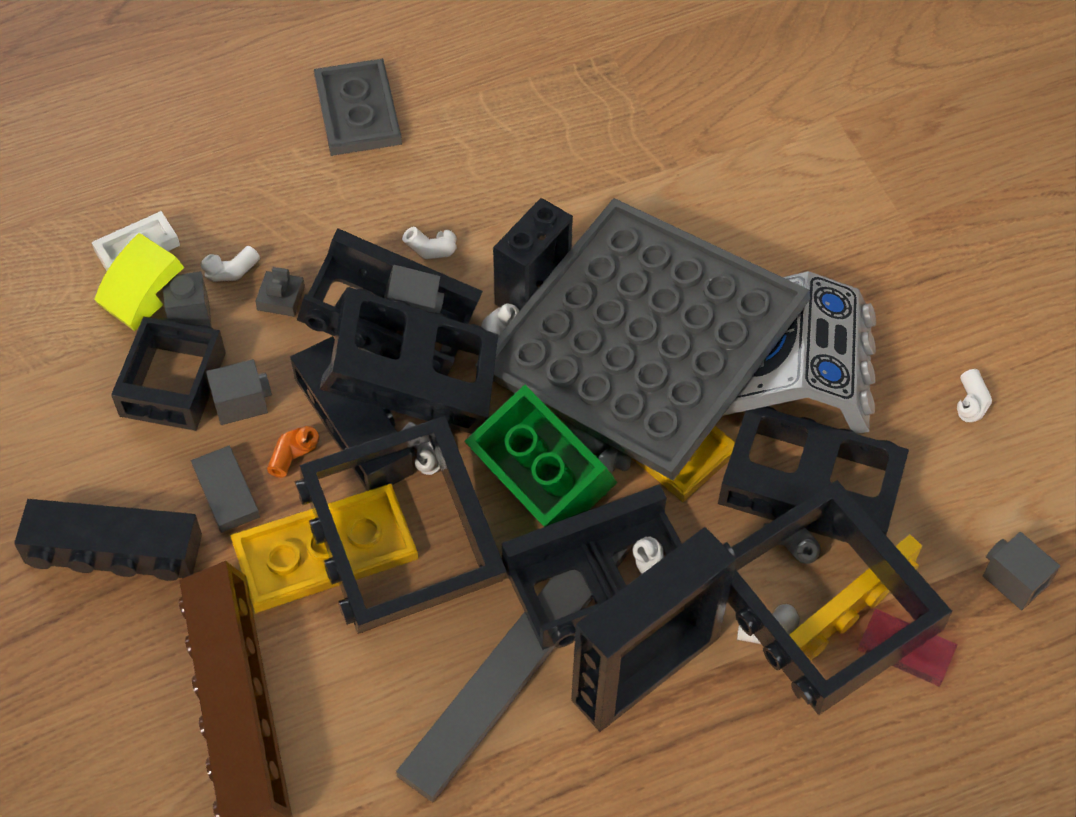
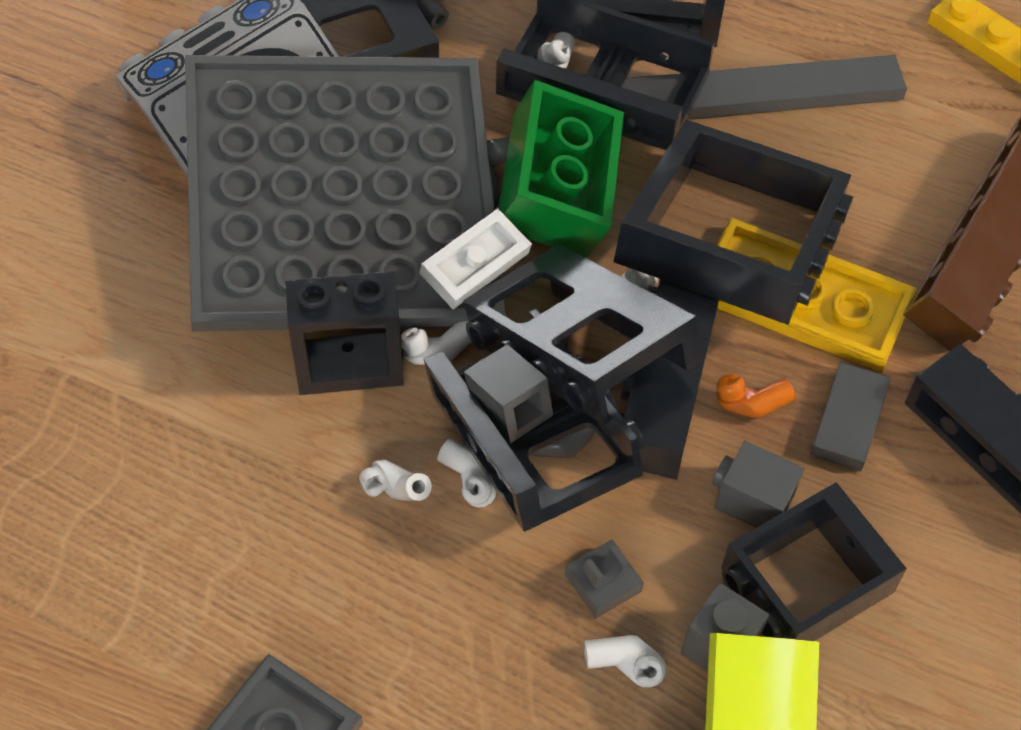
camera: 135 degrees left, 0 degrees up
(517, 356) = (475, 258): none -> white plate

